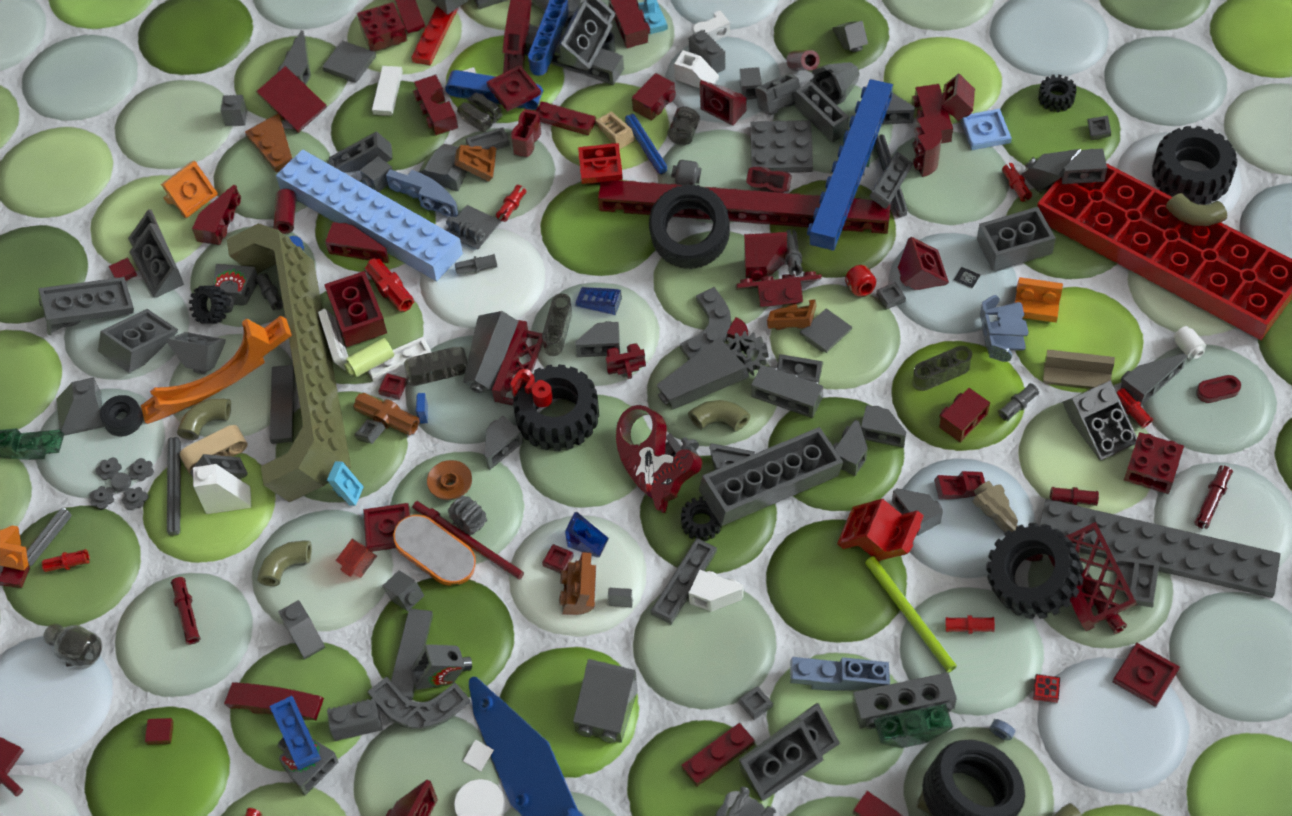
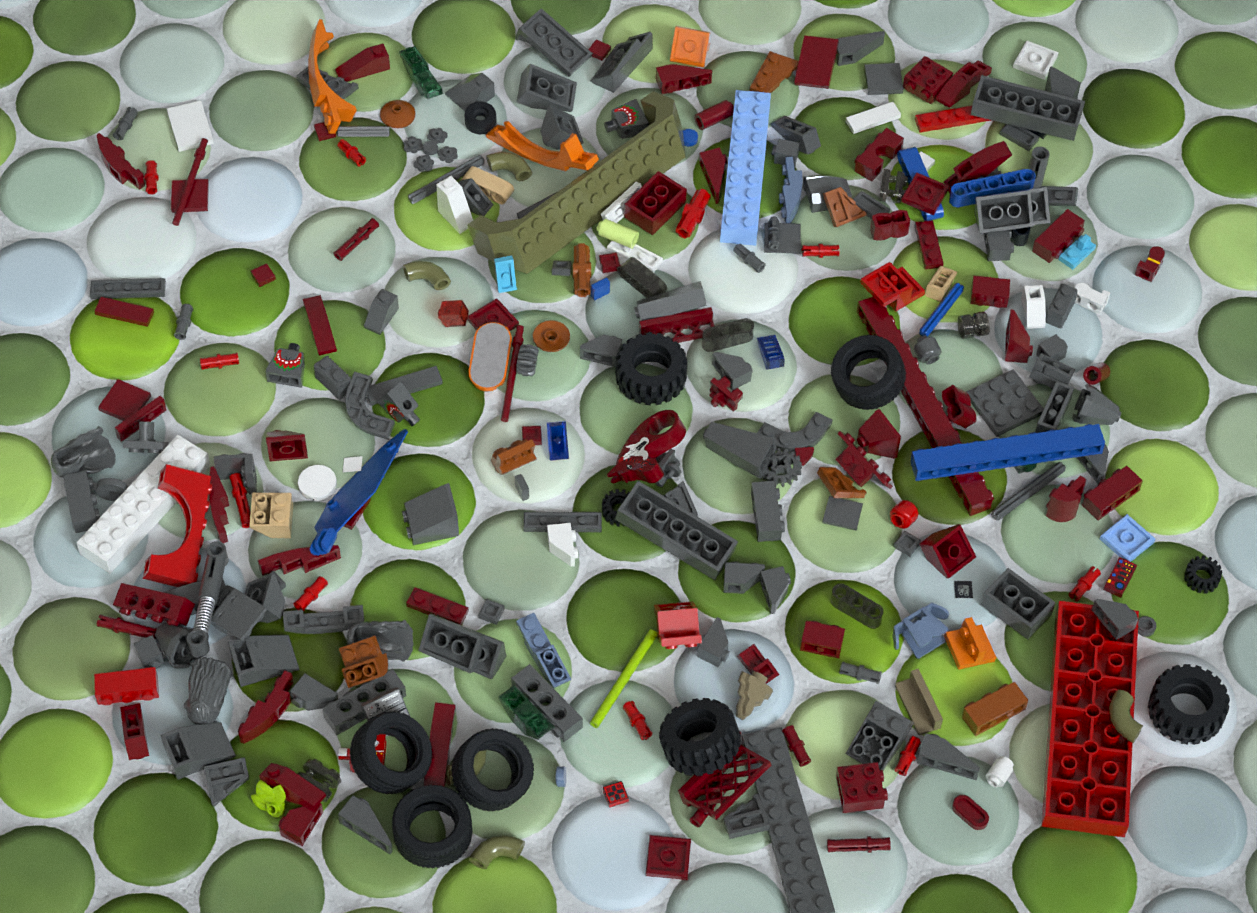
camera: 55 degrees right, 0 degrees up
(52, 499) = (397, 114): none -> dark orange dish
(74, 645) = (292, 192): clear smoke piece -> none
(218, 304) = (599, 114): black tyre -> none
(234, 110) = (782, 33): dark grey brick -> none
(295, 733) = (298, 345): blue plate -> none
(403, 590) = (445, 353): dark grey brick -> none
(540, 390) = (645, 344): red leg -> none
(719, 411) = (718, 474): olive cylinder -> none
(793, 256) = (892, 456): dark grey pin -> none
(802, 367) = (796, 511): dark grey slope -> none
(851, 35) = (1155, 397): slope -> none
(891, 180) = (1014, 489): dark grey tile -> none
(958, 97) = (1137, 500): dark red brick -> none
(1020, 150) = (1120, 577): none -> tile
(1047, 168) = (1107, 591): dark grey slope -> none
(1099, 127) = (1187, 620): dark grey tile -> none
(1117, 313) = (994, 708): none -> dark orange brick

